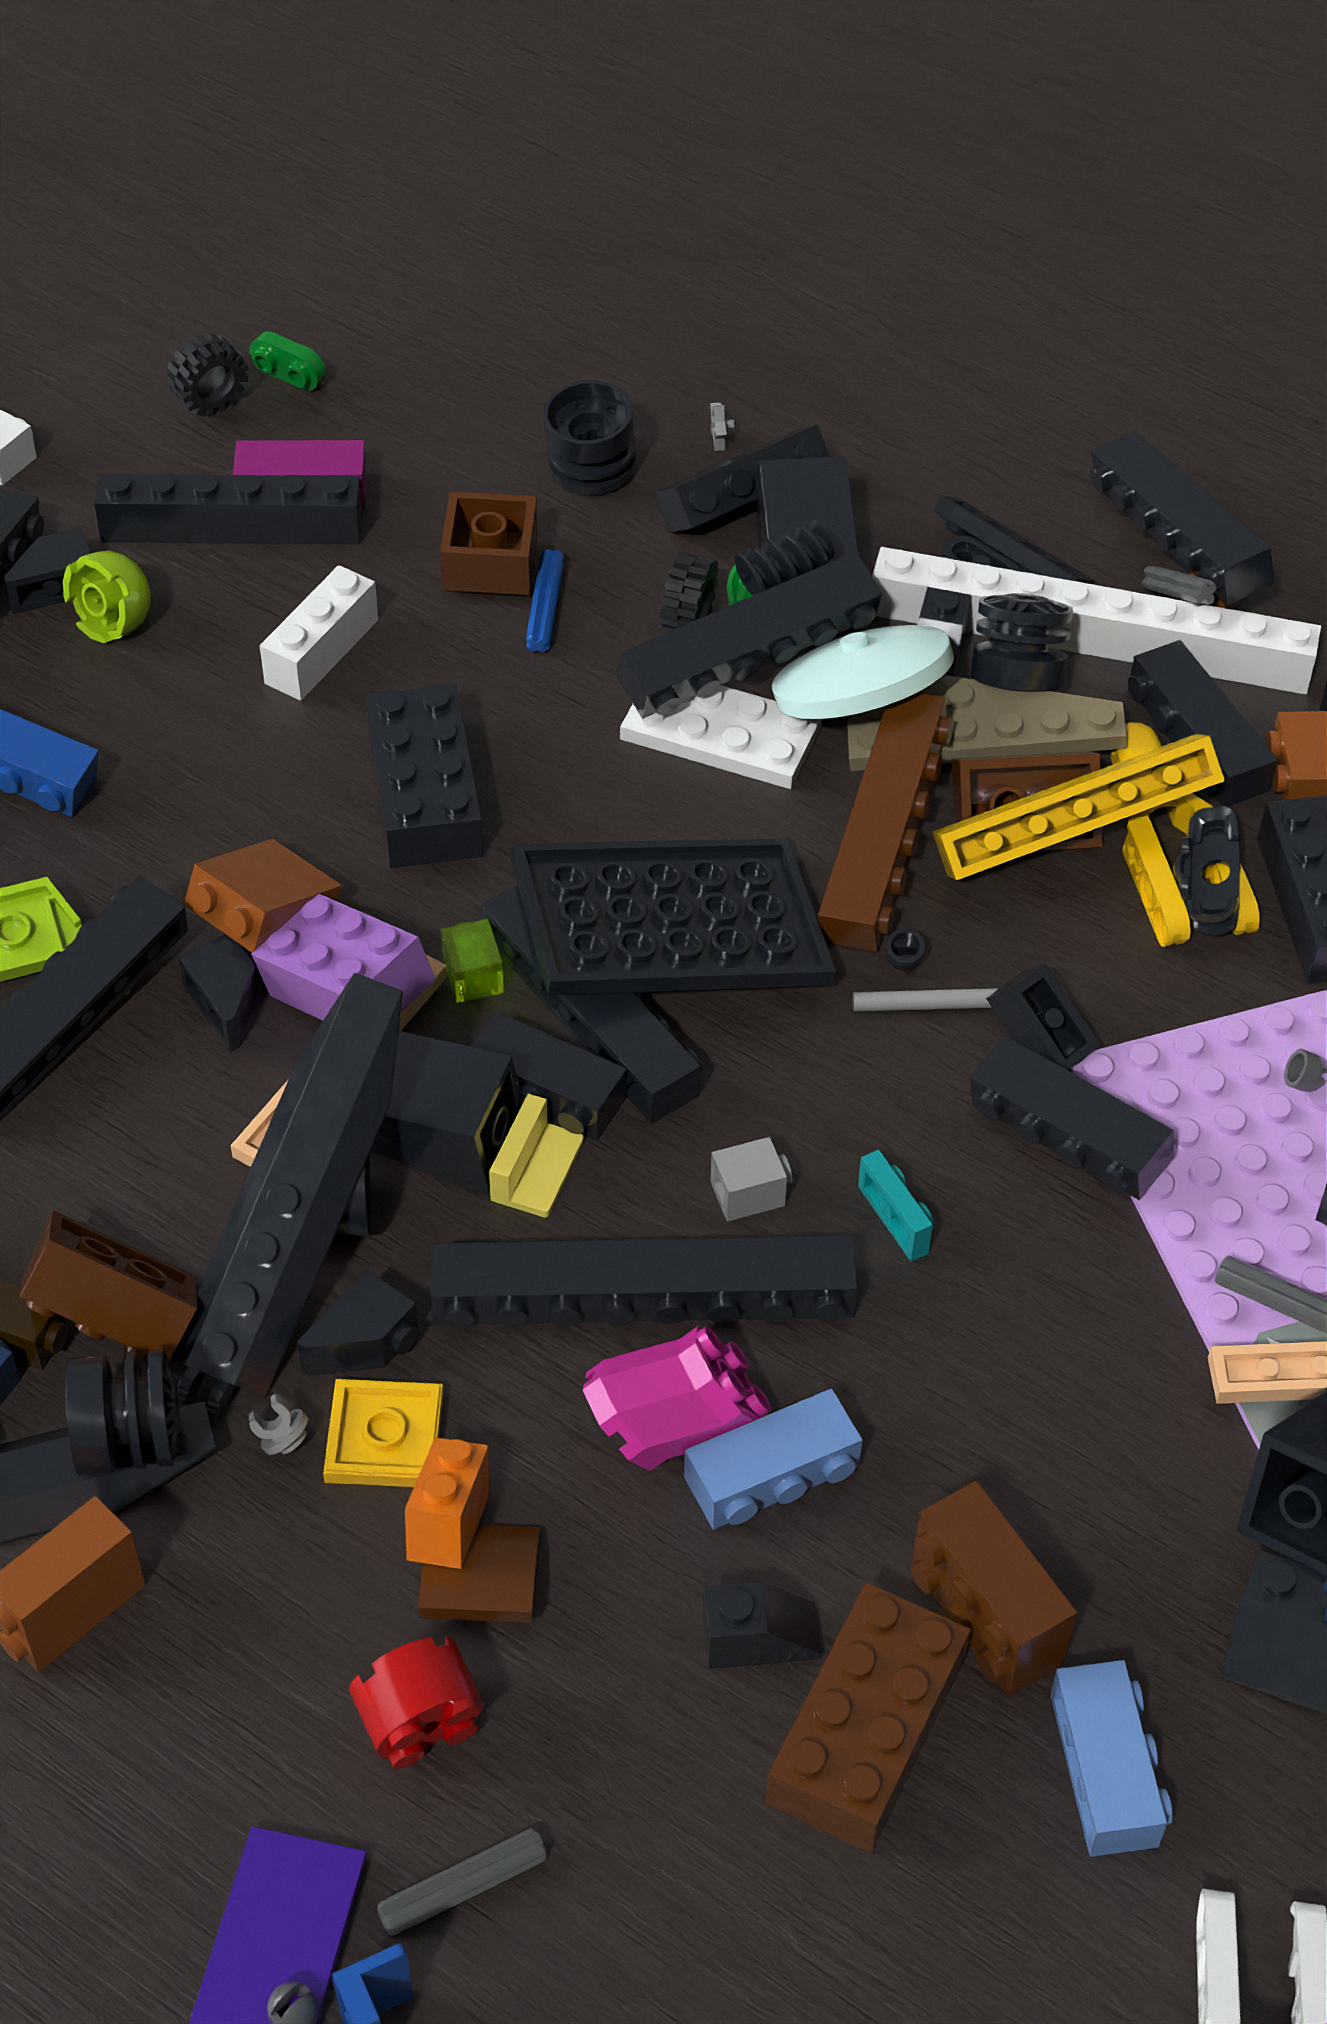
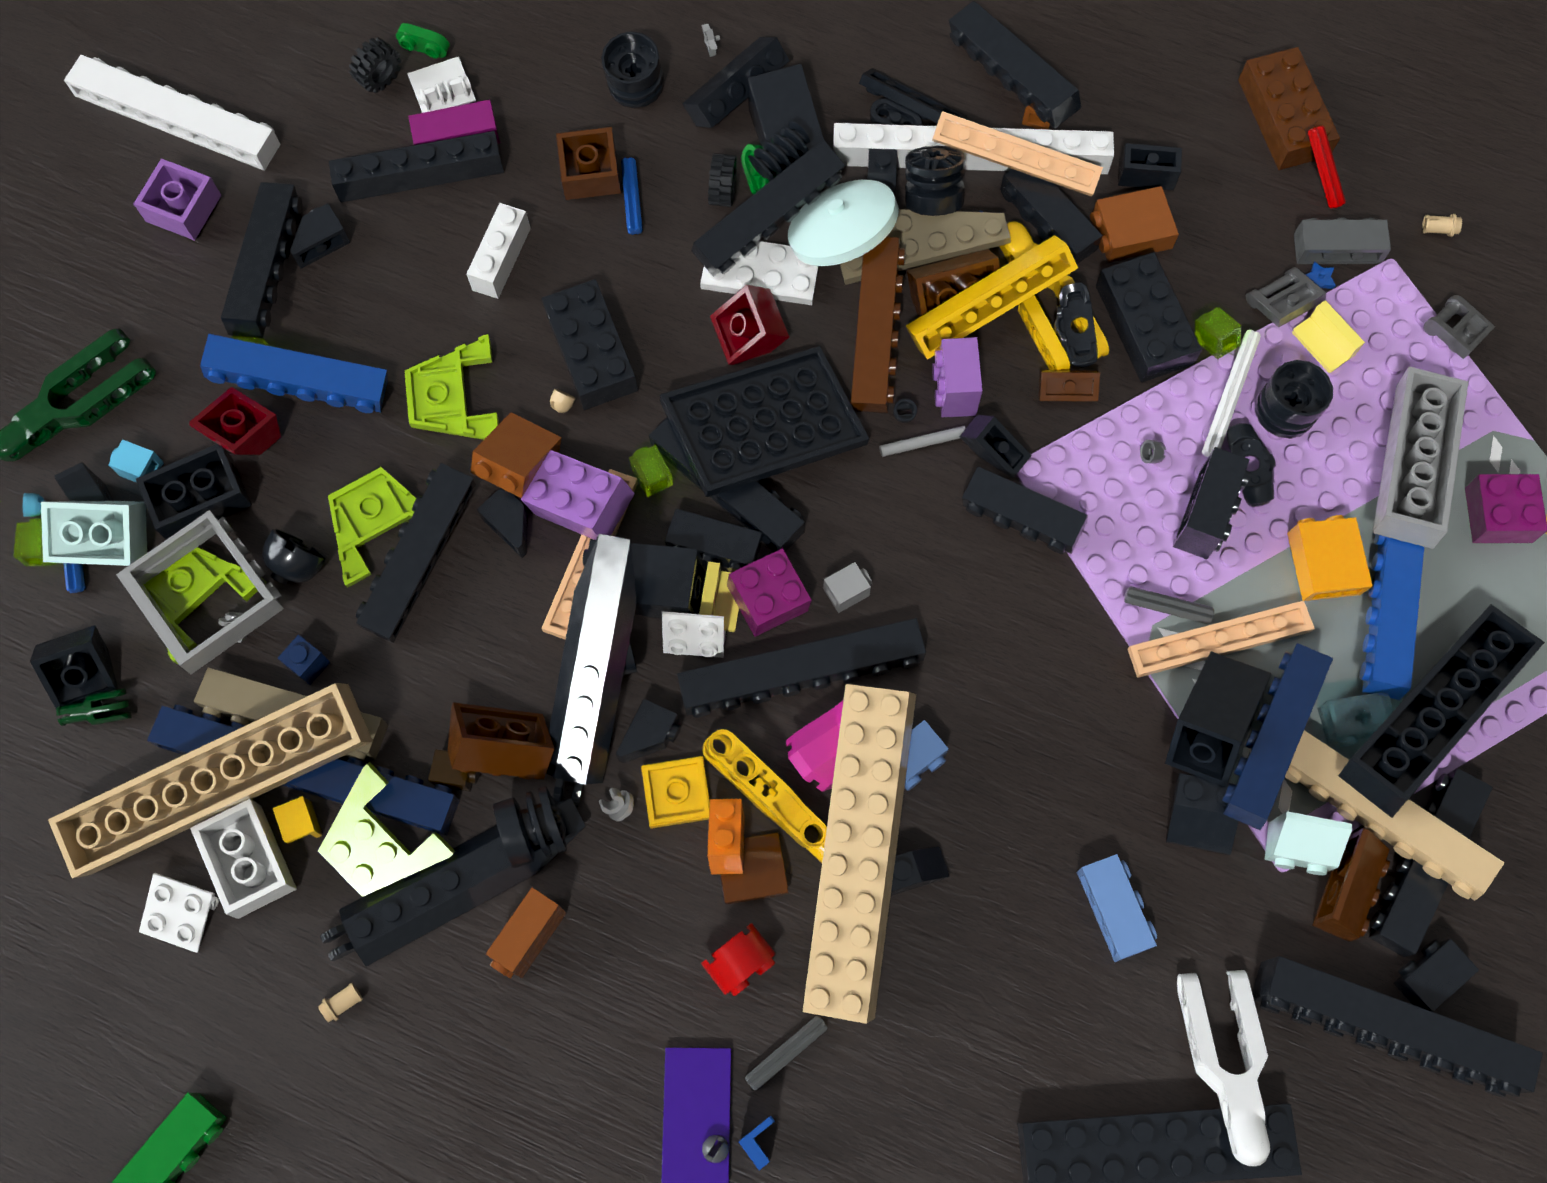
camera: 10 degrees left, 20 degrees up
(107, 594) = (359, 249): lime cylinder -> none
(170, 797) = (438, 393): none -> lime wing
(298, 416) = (441, 86): none -> white hinge
(357, 845) = (561, 401): none -> tan hinge
(474, 1192) = (693, 634): none -> white hinge
(556, 1469) = (781, 802): none -> yellow piece
(616, 1160) = (768, 592): none -> magenta brick
(664, 1561) = (859, 853): none -> tan brick
(683, 790) = (749, 325): none -> dark red slope
(867, 1717) = (984, 912): reddish brown brick -> none
(888, 1195) = (927, 579): teal plate -> none
(993, 1587) = (1037, 826): reddish brown brick -> none
(998, 910) = (957, 377): none -> medium lavender brick
(1160, 624) = (1017, 154): none -> light nougat plate
(1179, 585) = (1021, 116): dark grey axle -> none
(1183, 959) = (1069, 385): none -> reddish brown plate

